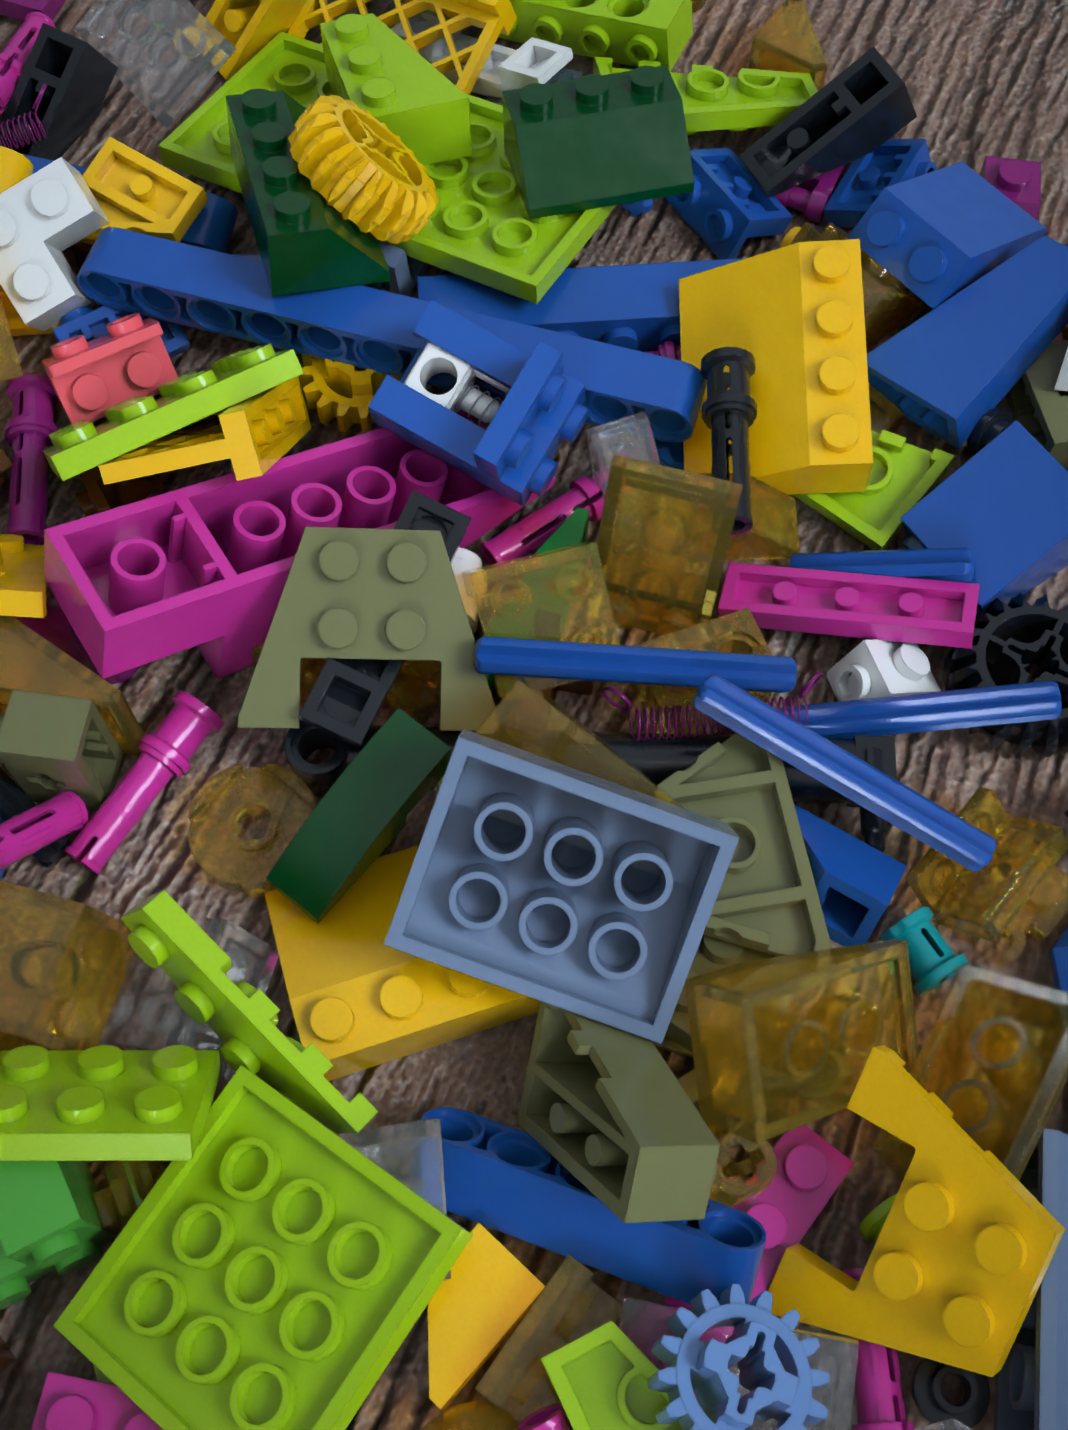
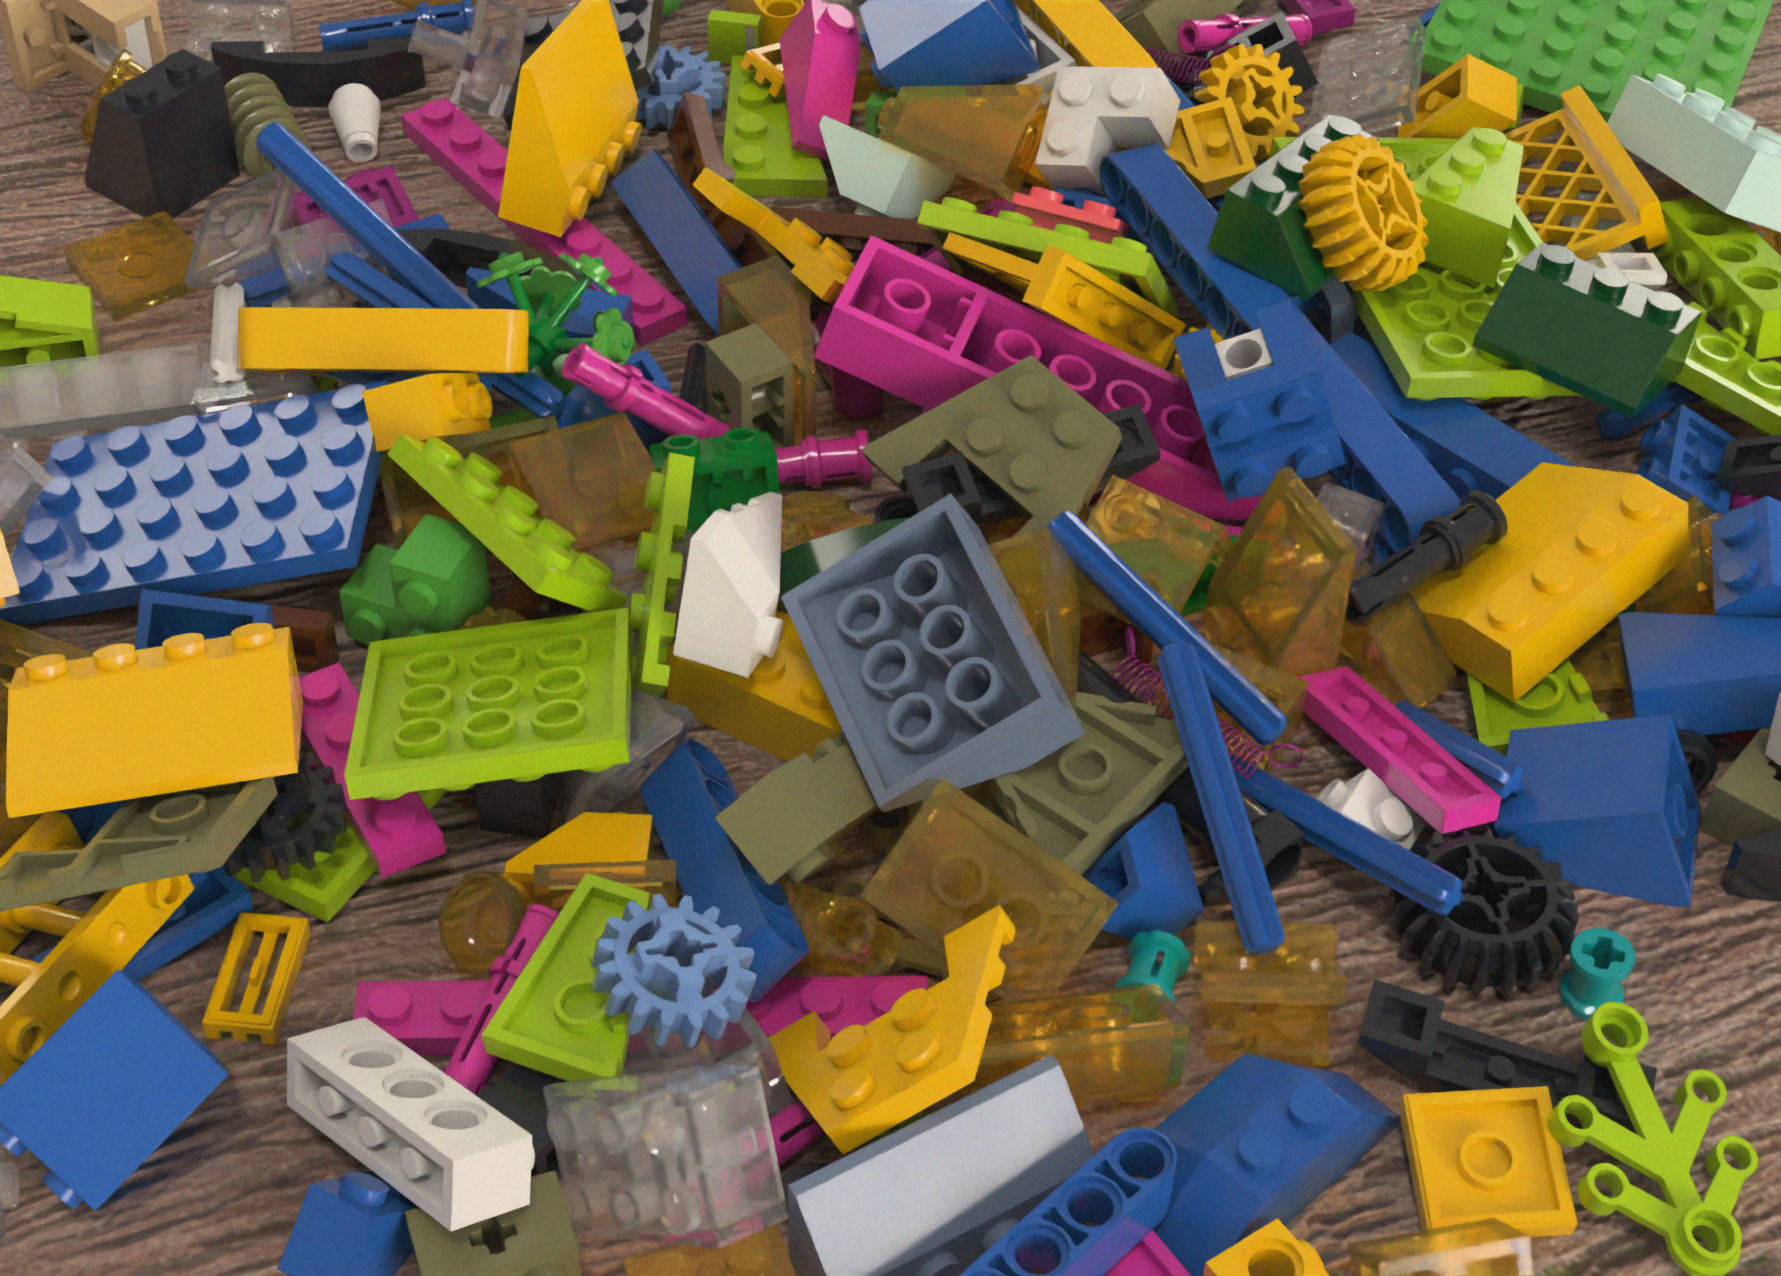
camera: 50 degrees right, 20 degrees down
(100, 115) = (1258, 93): none -> yellow gear
(116, 846) = (725, 469): none -> green bracket
(338, 969) = (733, 588): none -> white wedge

